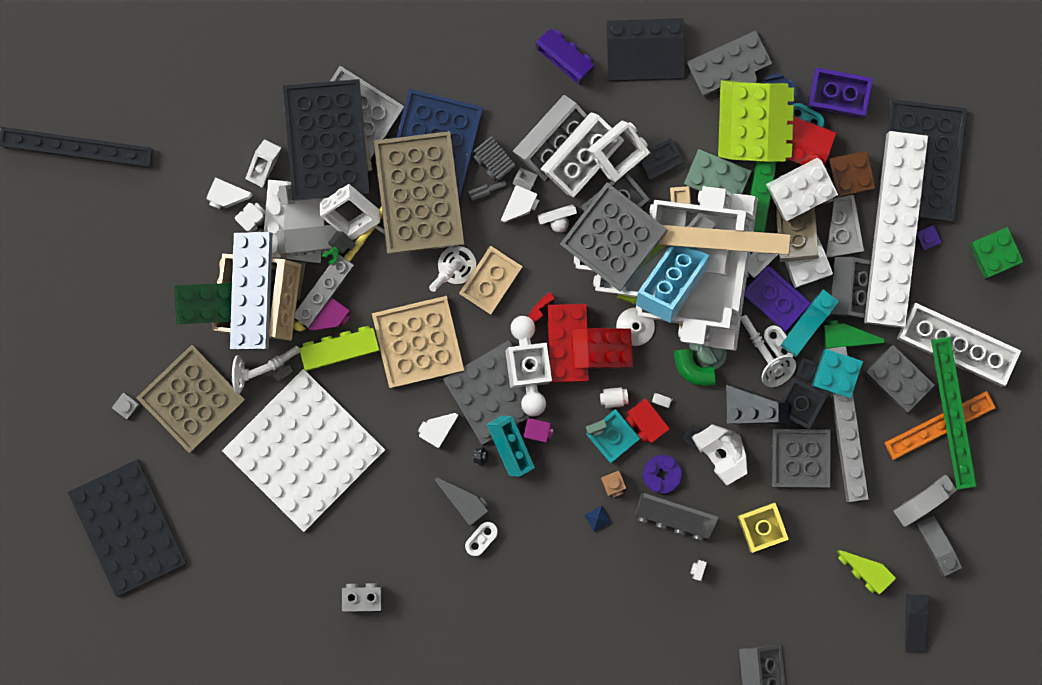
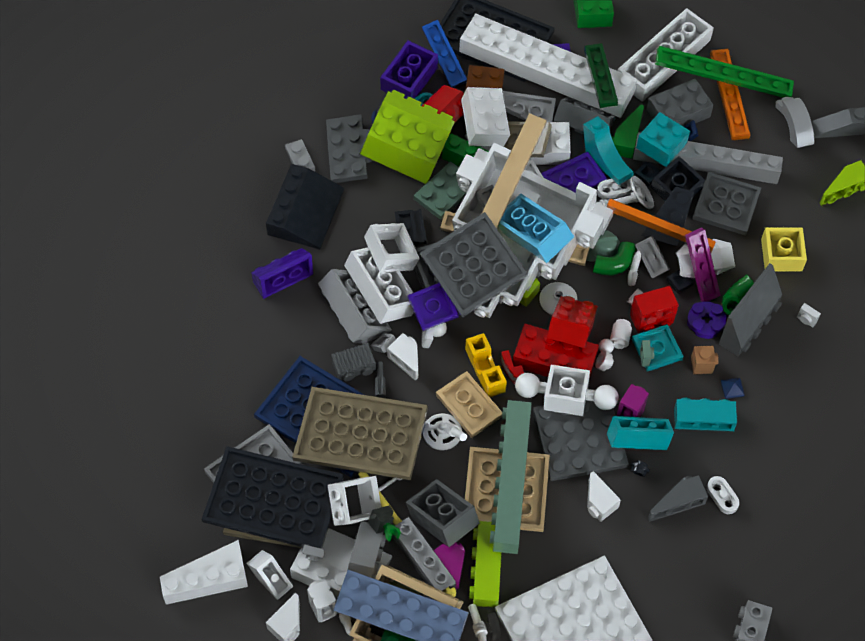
camera: 70 degrees left, 25 degrees down
(247, 116) = (205, 576): none -> white wedge
(367, 293) = (442, 512): none -> dark grey brick
(425, 343) = (512, 477): none -> sand green brick
(532, 282) = (481, 359): none -> yellow arch
(557, 500) = (705, 414): none -> teal brick
(567, 209) = (432, 306): none -> dark purple tile
(581, 390) = (604, 360): none -> white plate
(686, 389) = (632, 275): none -> white piece
(695, 494) = (736, 293): none -> green cylinder
(703, 21) = (299, 155): none -> light grey plate
(706, 453) = (702, 265): none -> magenta plate
(708, 402) = (652, 257): none -> light grey plate
(733, 400) = (652, 221): none -> orange tile
(873, 397) = (691, 126): none -> dark blue slope
(875, 120) = (446, 55): none -> blue plate
(889, 289) = (601, 75): none -> dark green plate

